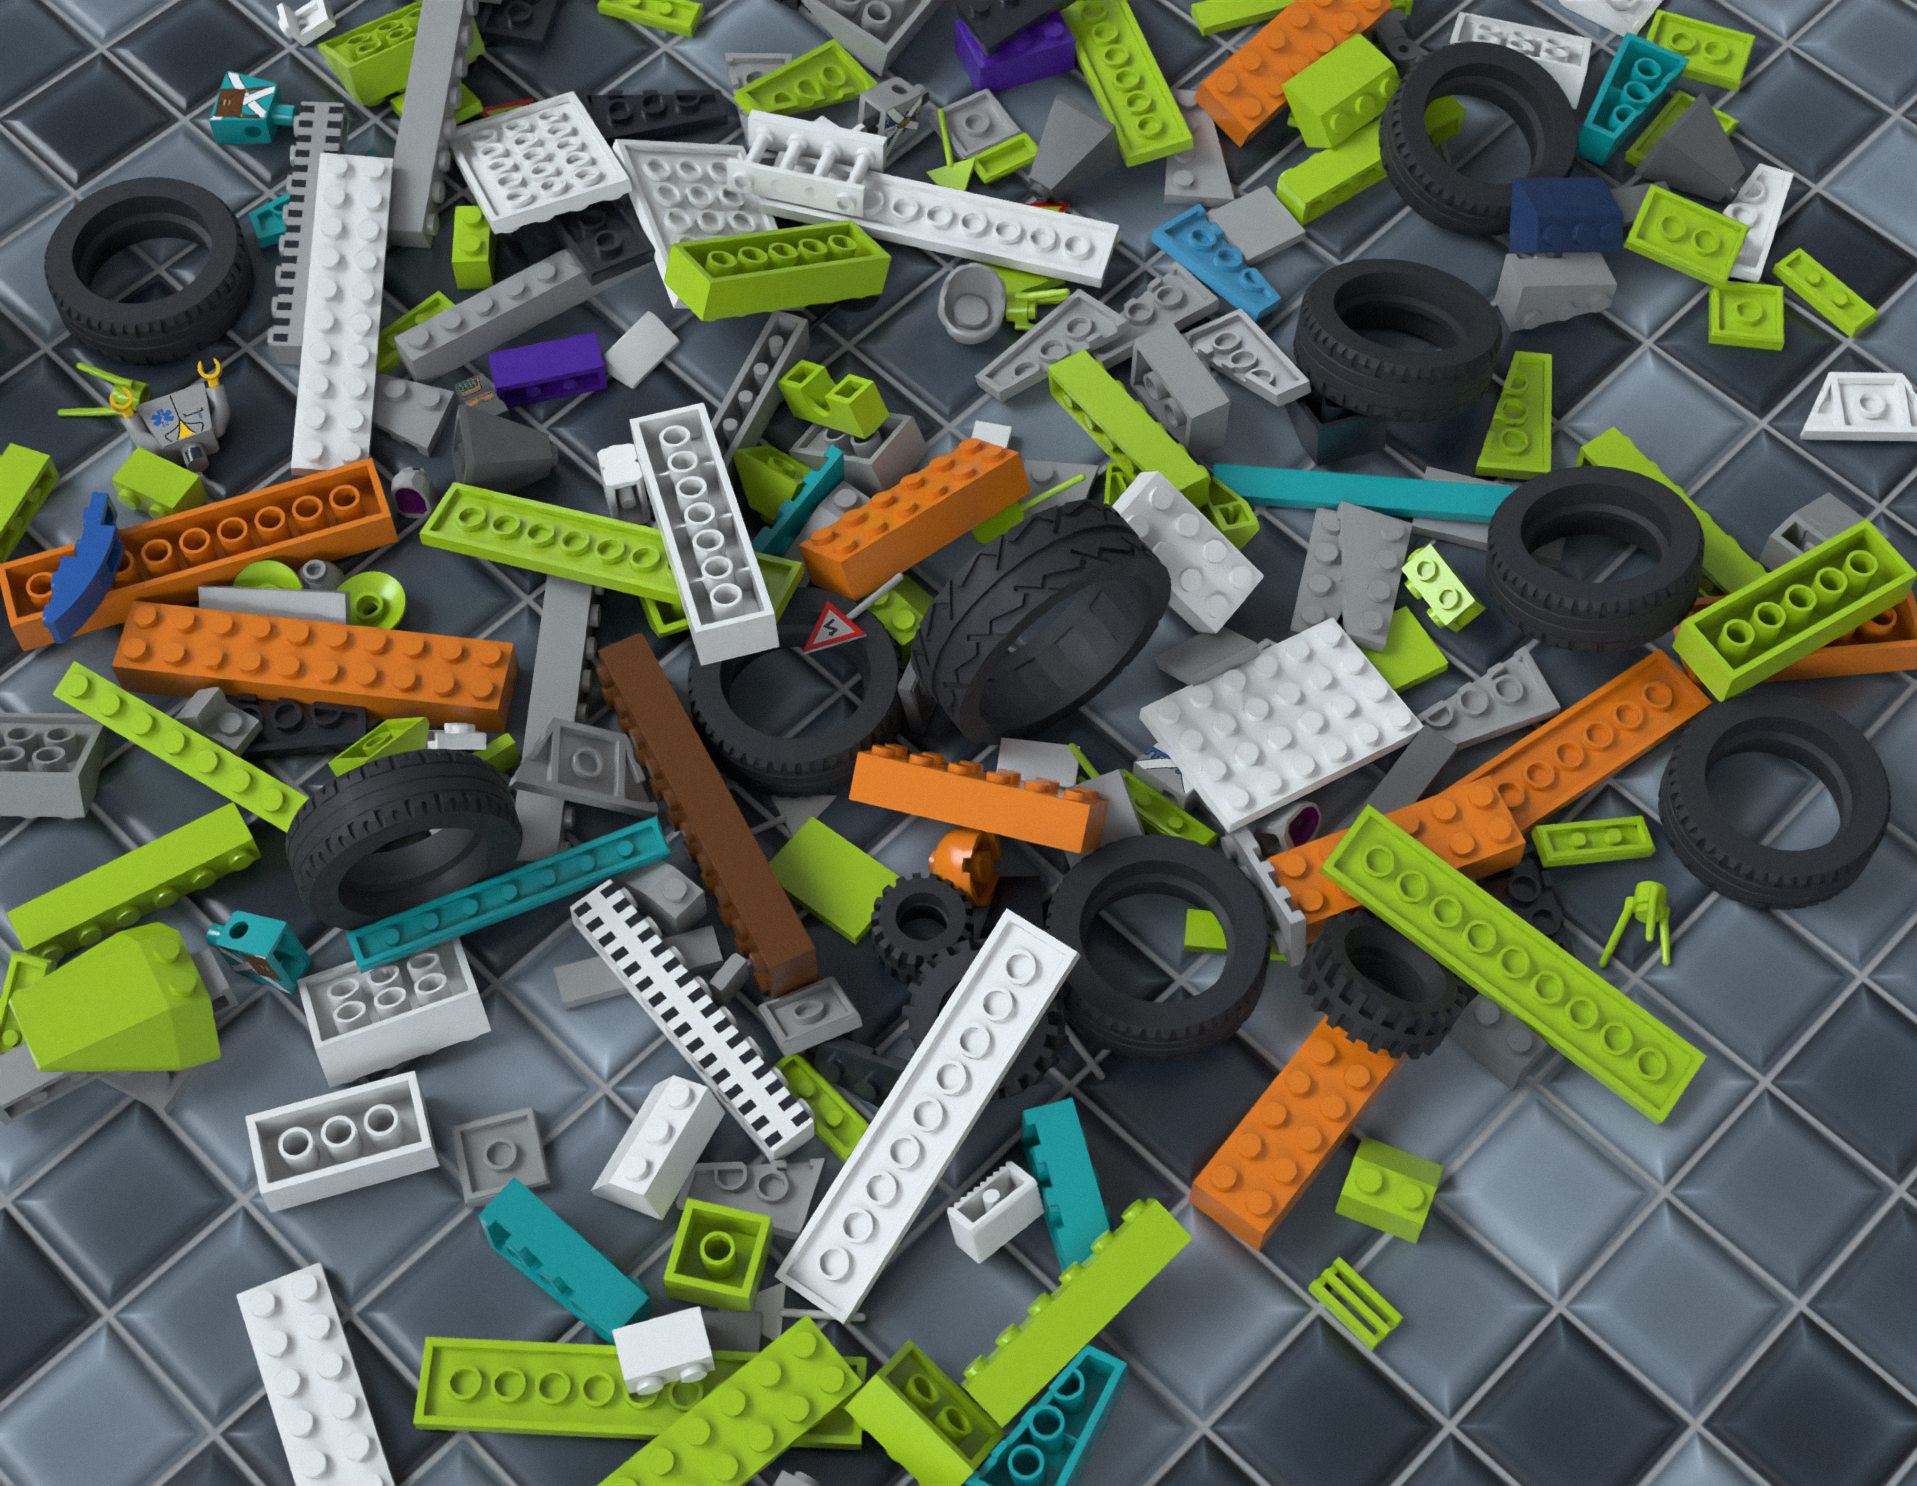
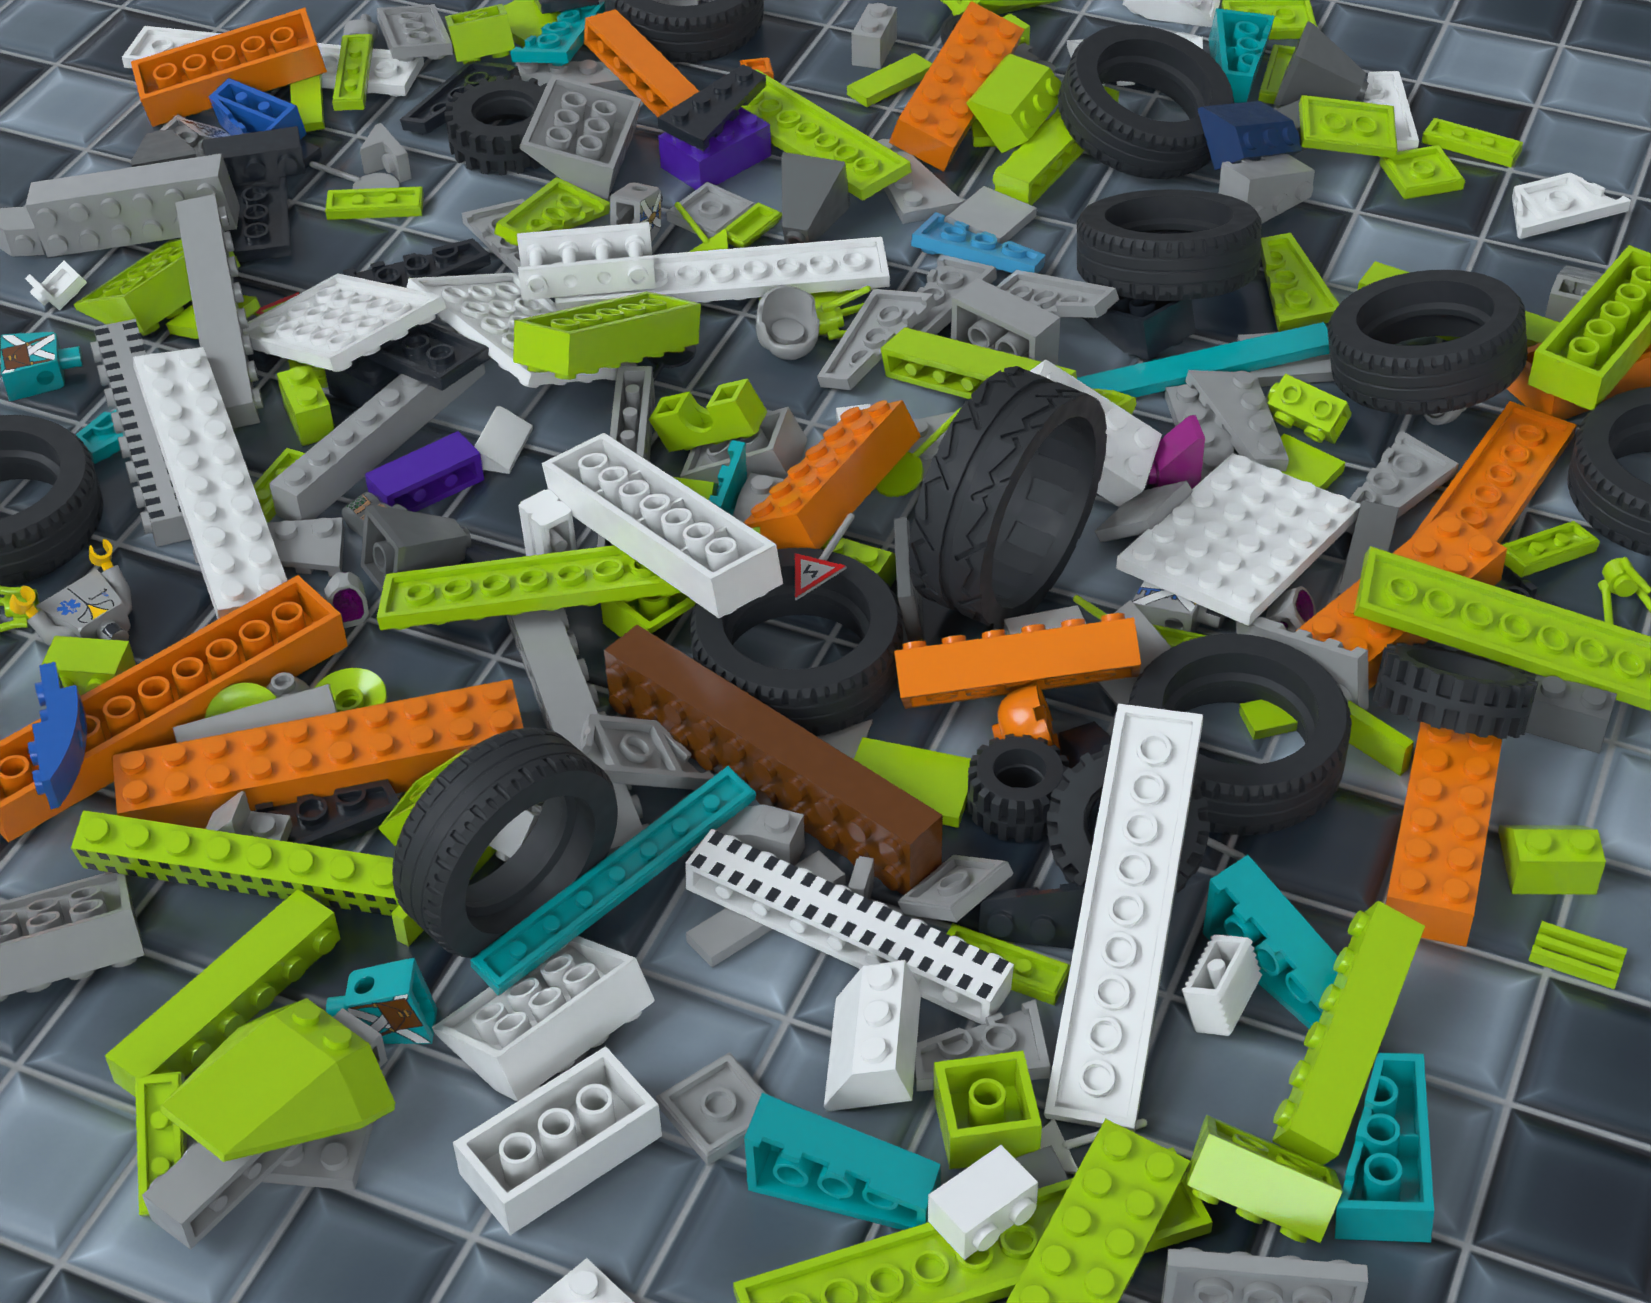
camera: 20 degrees left, 15 degrees down
(1270, 607) = (1179, 455): none -> magenta slope
(1291, 996) = (1379, 740): none -> lime tile

